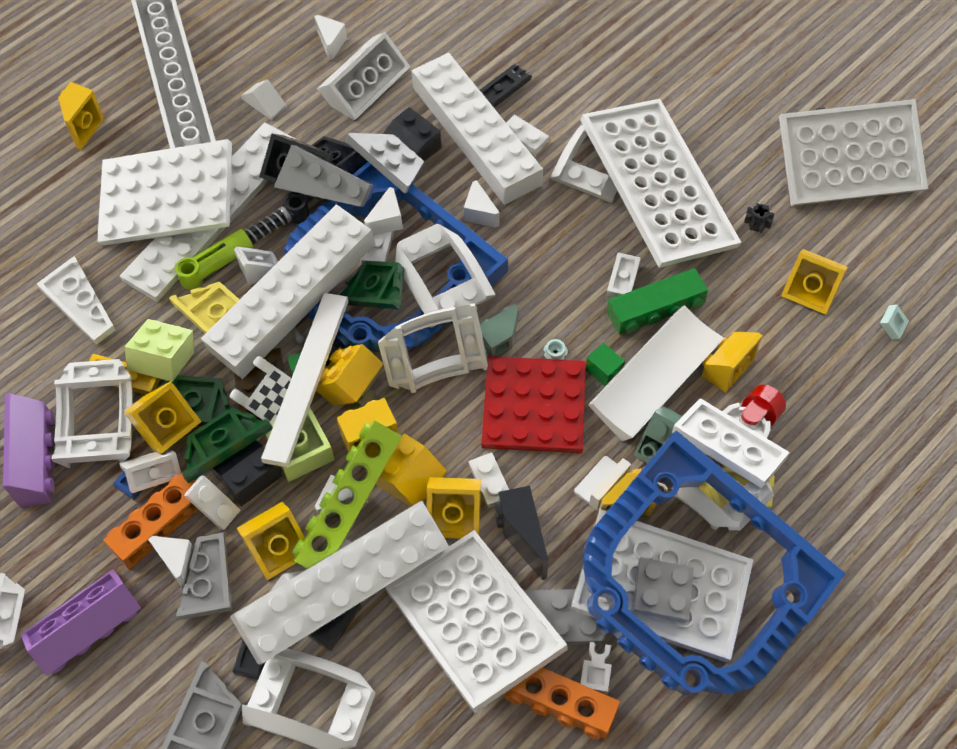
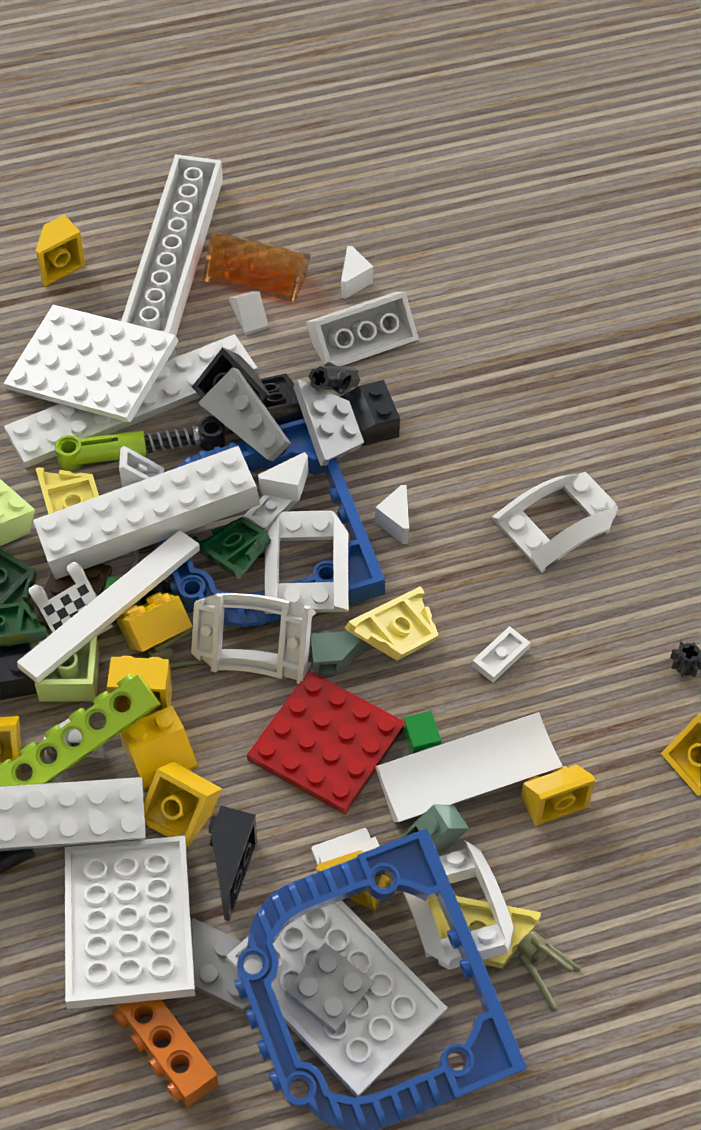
camera: 25 degrees right, 5 degrees down
(248, 62) = (255, 266): none -> clear orange slope
(371, 121) = (334, 378): none -> black piece
(477, 128) = (444, 433): white brick -> none
(491, 478) = (235, 788): white plate -> none
(505, 84) = (501, 400): black hinge -> none
(530, 136) = (492, 461): white plate -> none
(536, 290) = (397, 625): none -> light yellow wing
(555, 345) = (384, 691): light aqua plate -> none
(596, 672) = (216, 1036): white plate -> none
(655, 192) = (638, 565): white piece -> none
(656, 301) = (519, 695): green brick -> none
(739, 433) = (507, 871): white plate -> none
(787, 482) = (538, 949): none -> olive plant

